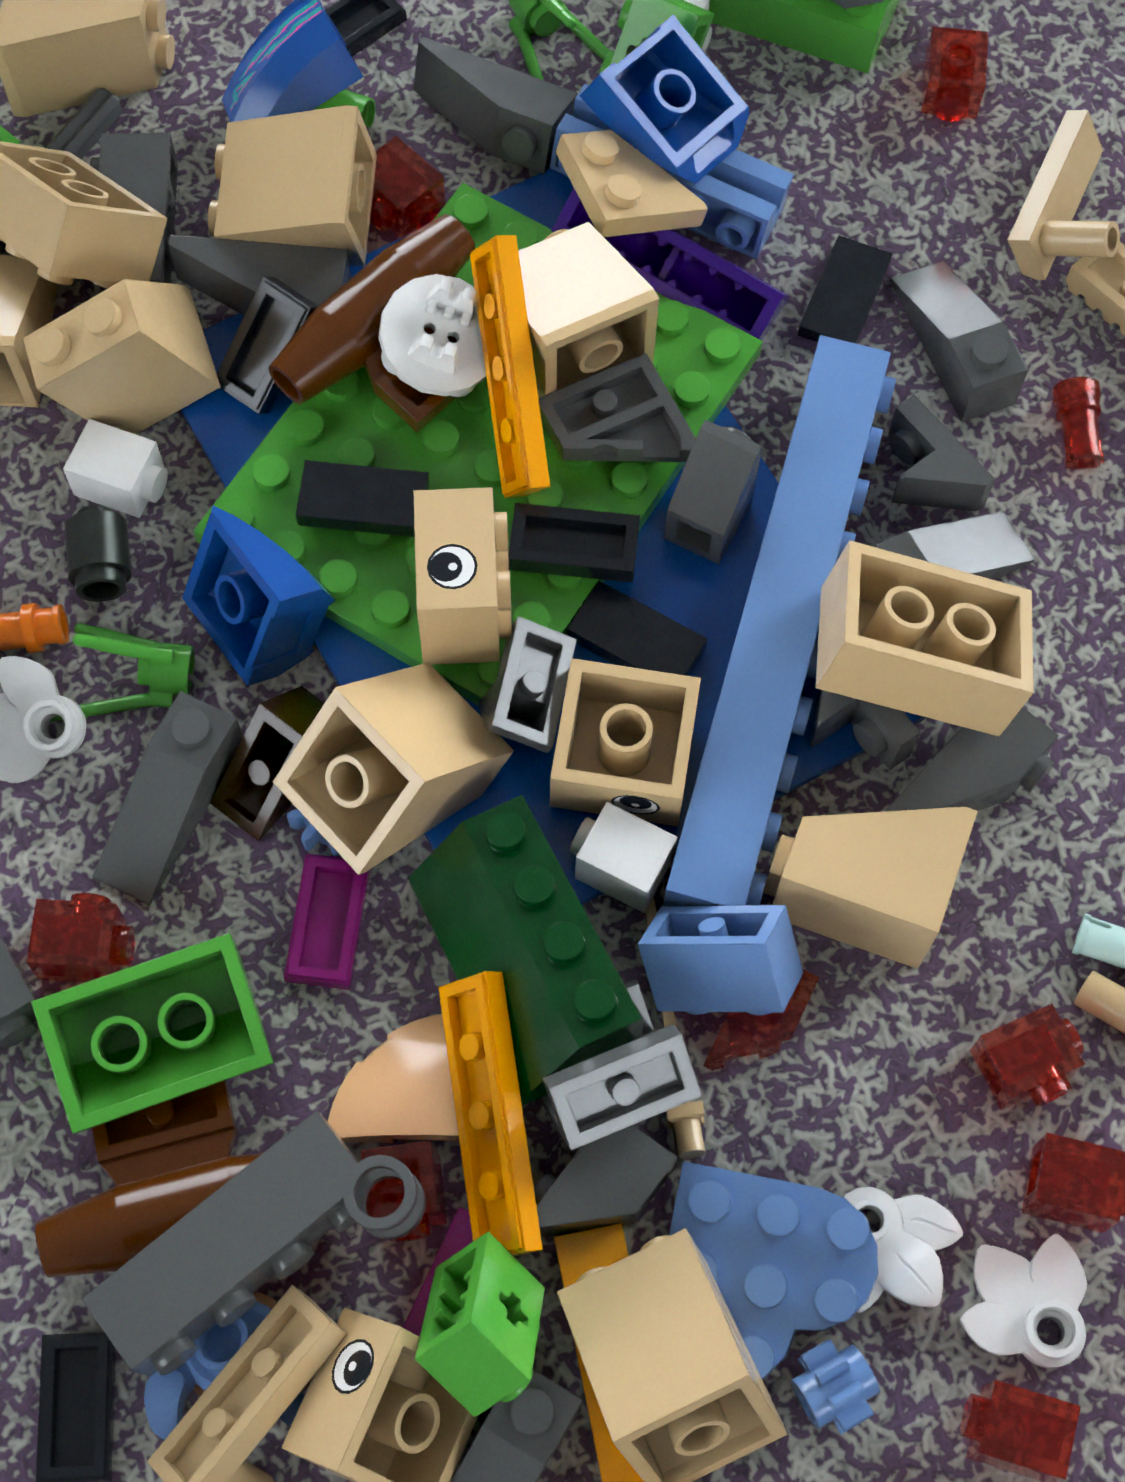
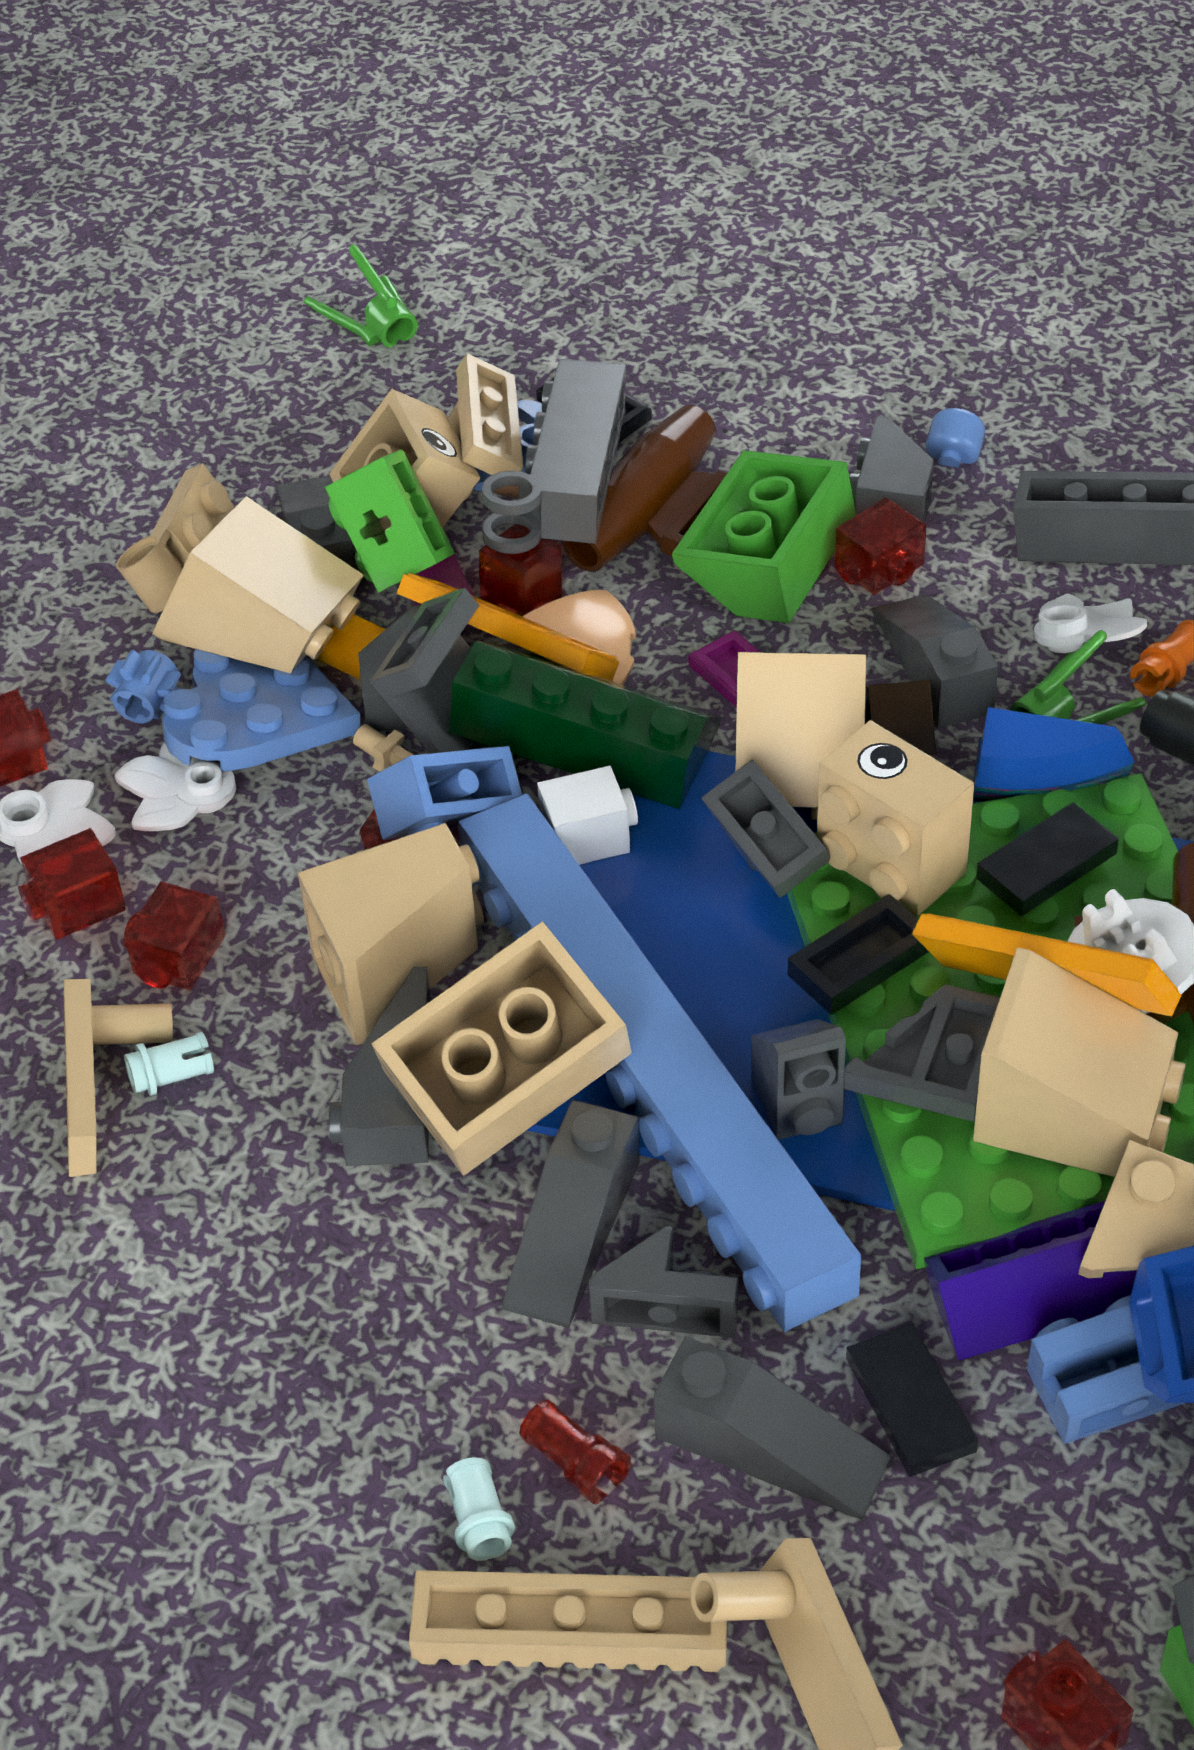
camera: 140 degrees right, 20 degrees down
(624, 741) = (664, 861): tan brick -> none
(634, 634) = (738, 965): black tile -> none

